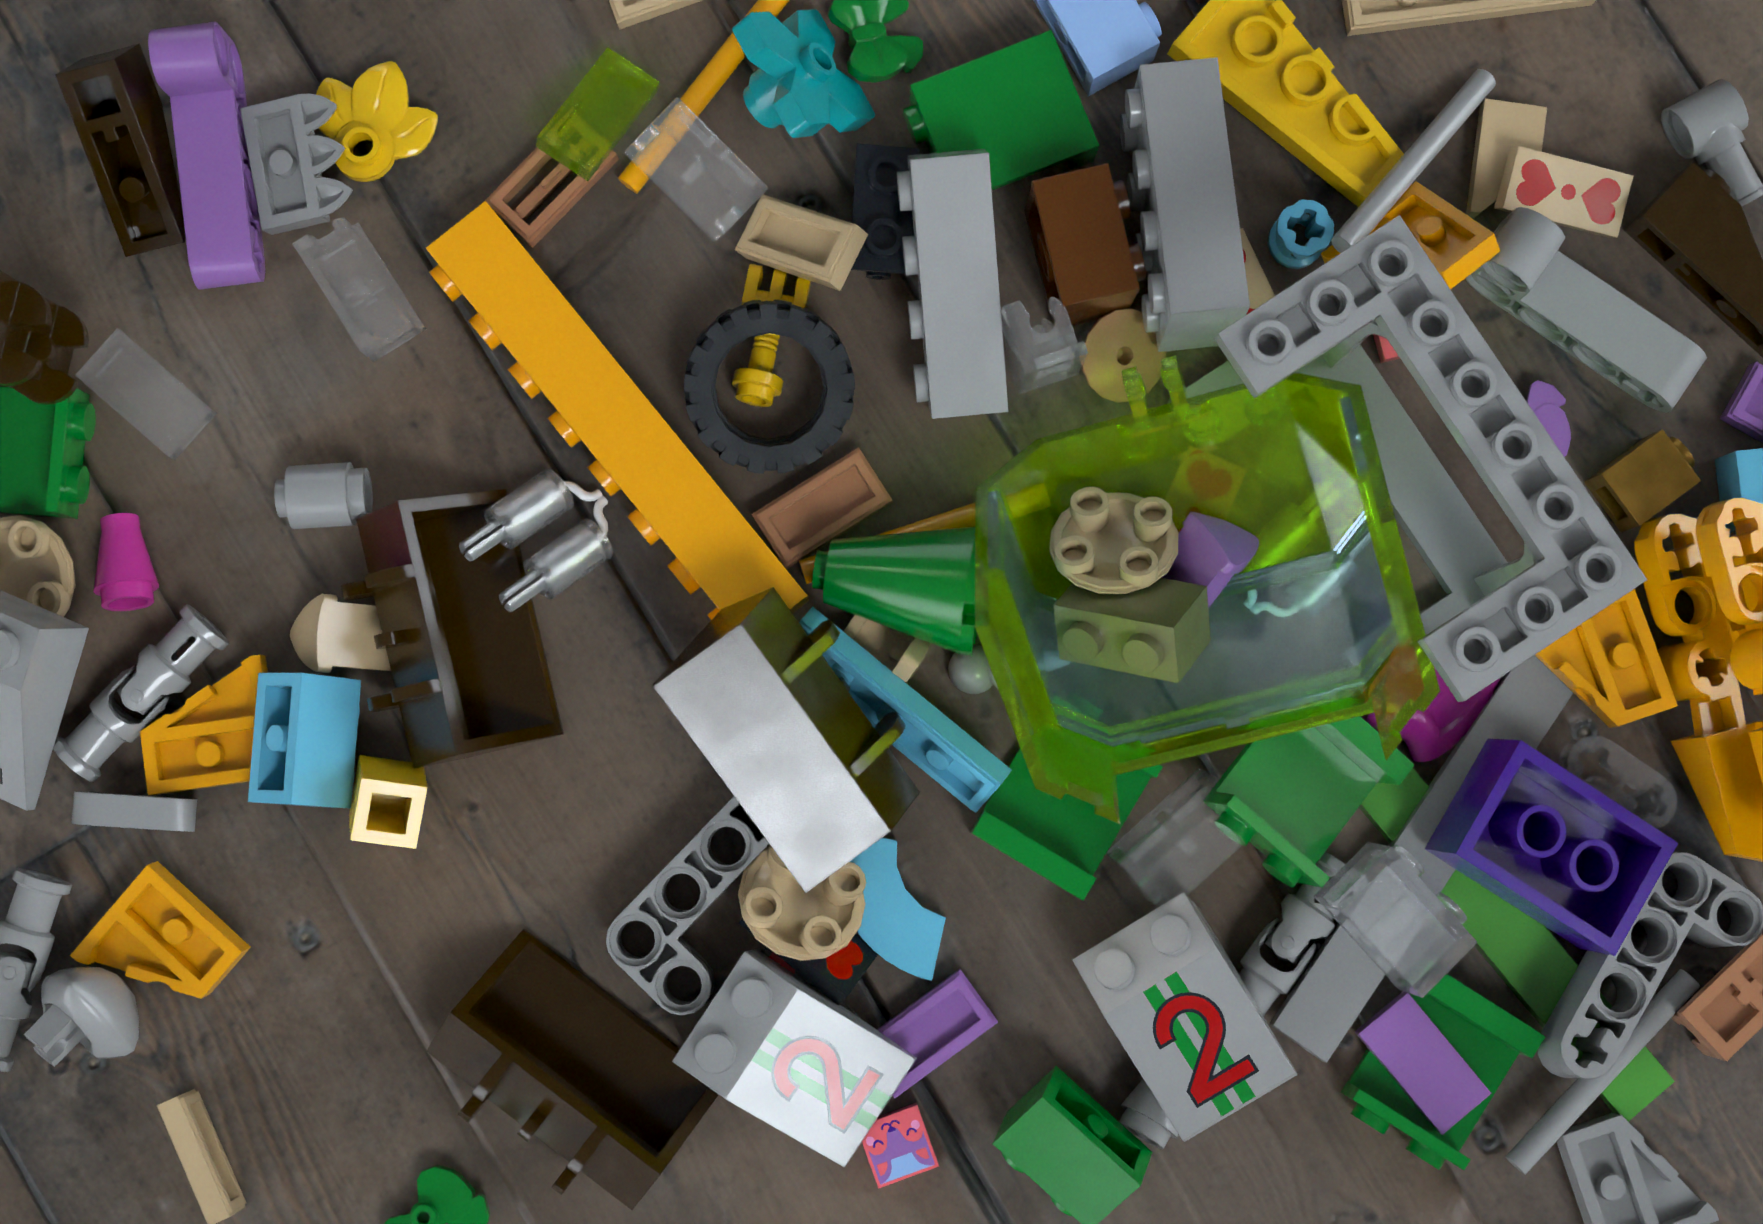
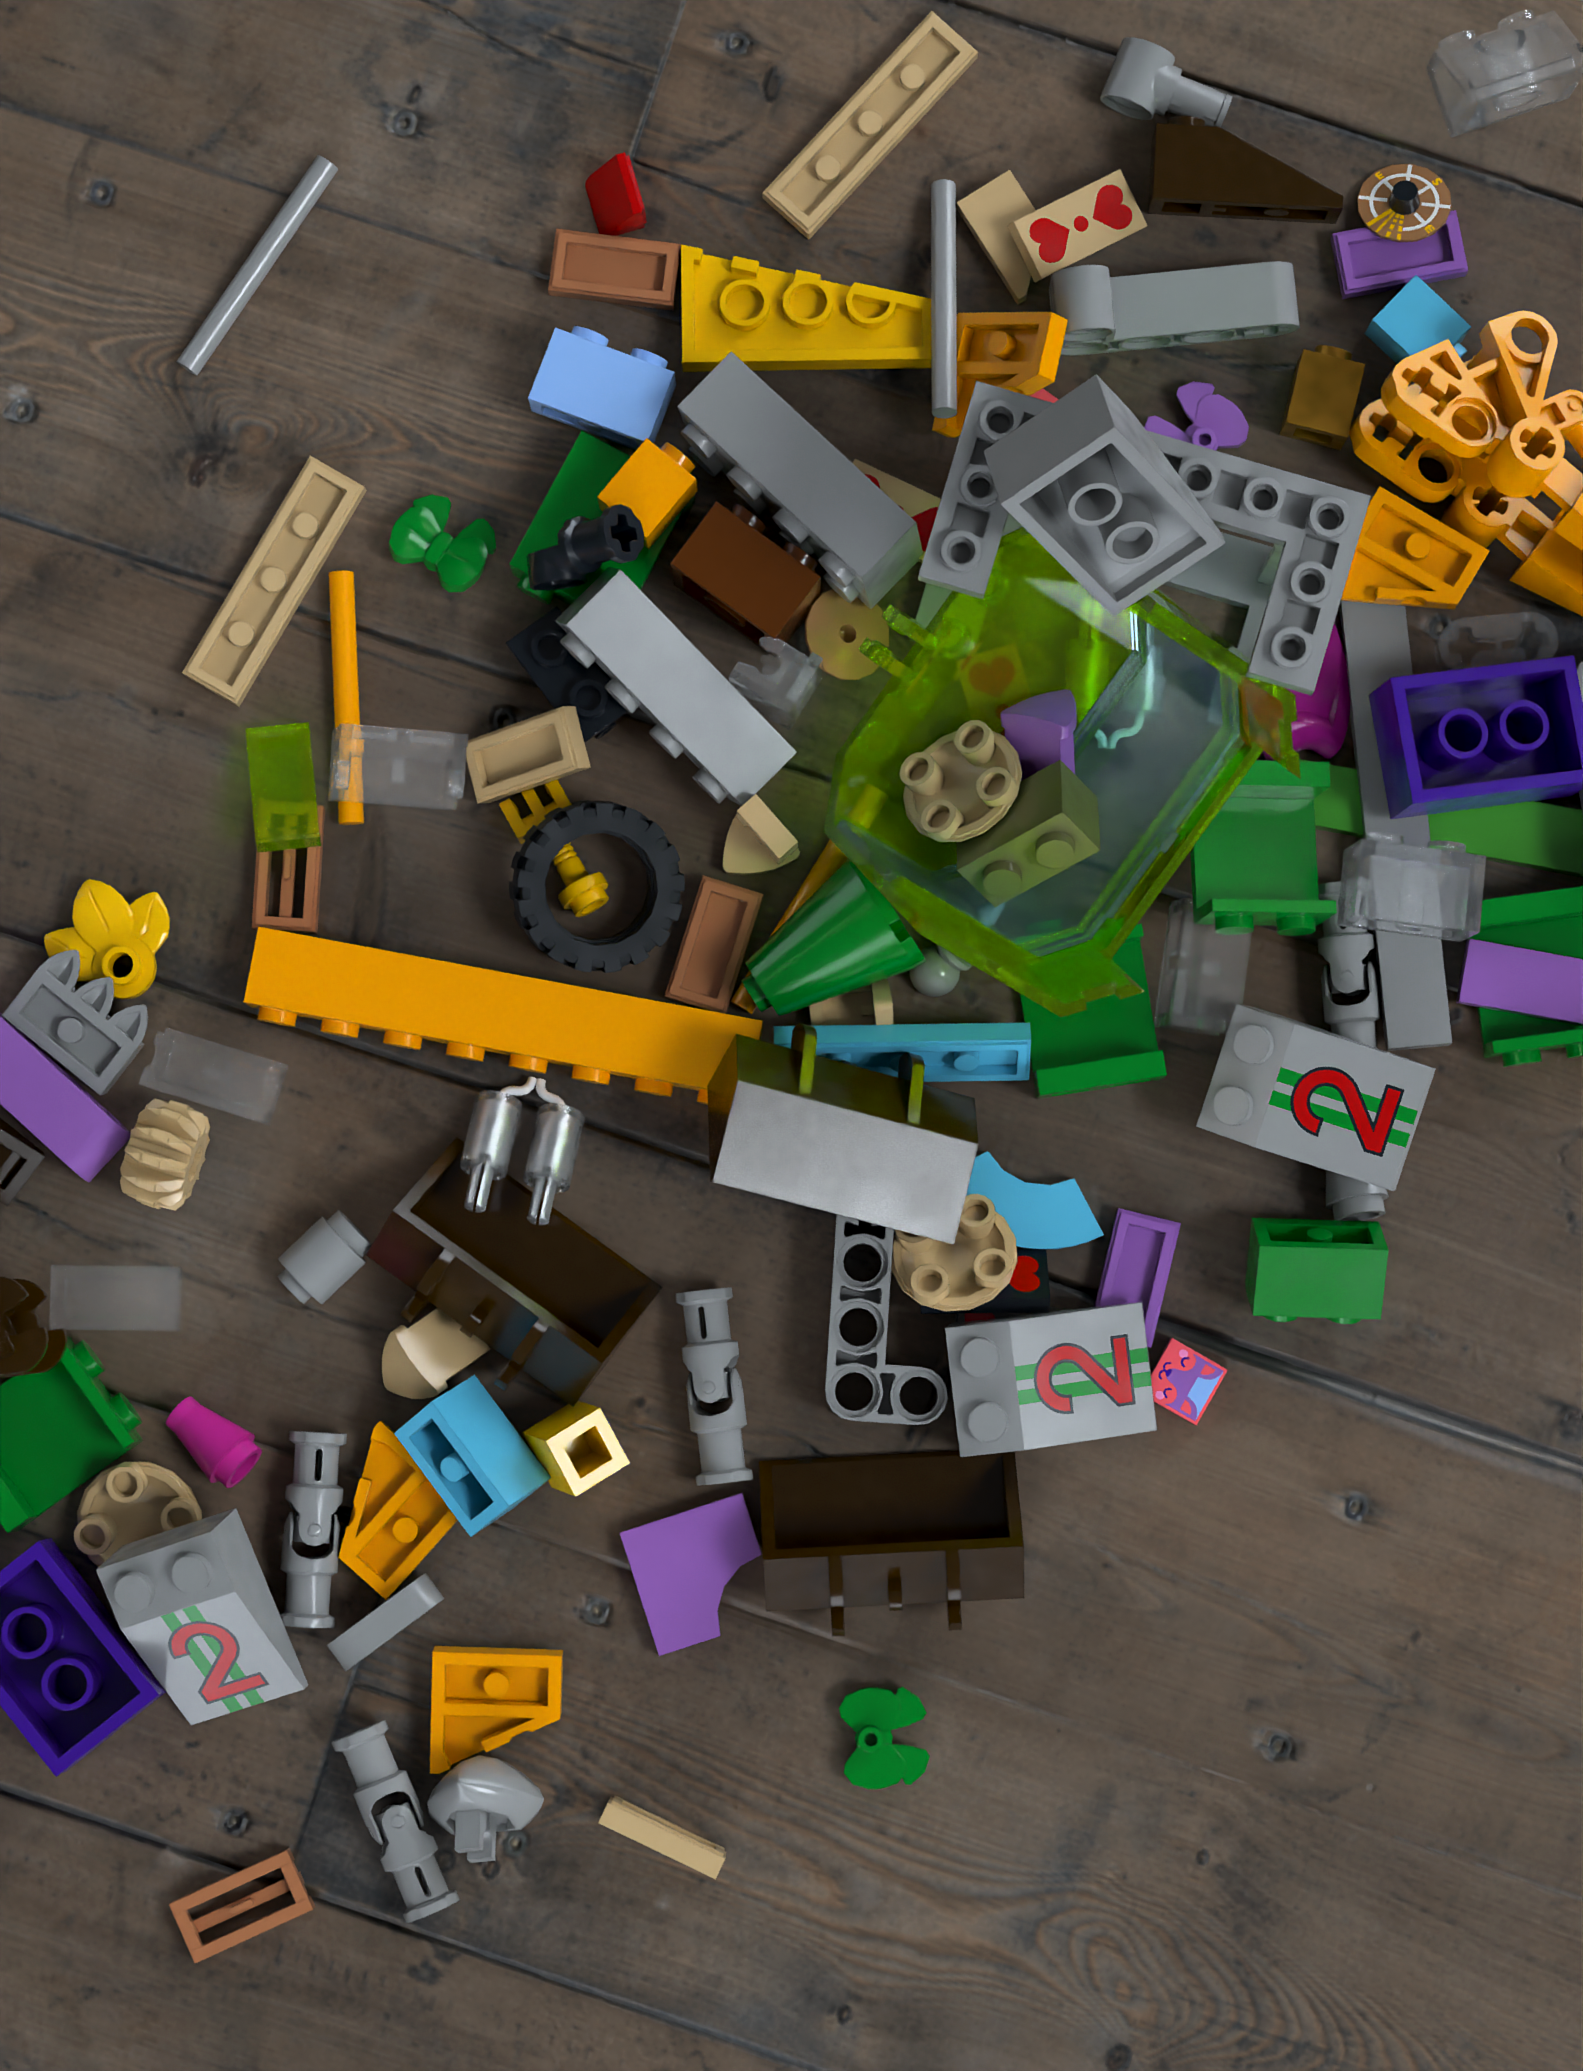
camera: 35 degrees left, 0 degrees up
(268, 314) = (164, 1154): none -> tan gear
(397, 962) = (684, 1568): none -> medium lavender tile
(539, 836) = (712, 1359): none -> light grey piece
(798, 75) = (416, 629): teal plant -> none
(921, 456) = (757, 841): none -> tan tile
(976, 114) = (584, 547): none -> black connector
(1063, 115) = (653, 485): none -> light orange brick
(1318, 231) = (894, 444): medium azure bush -> none
(1424, 392) = (1101, 496): none -> light grey slope

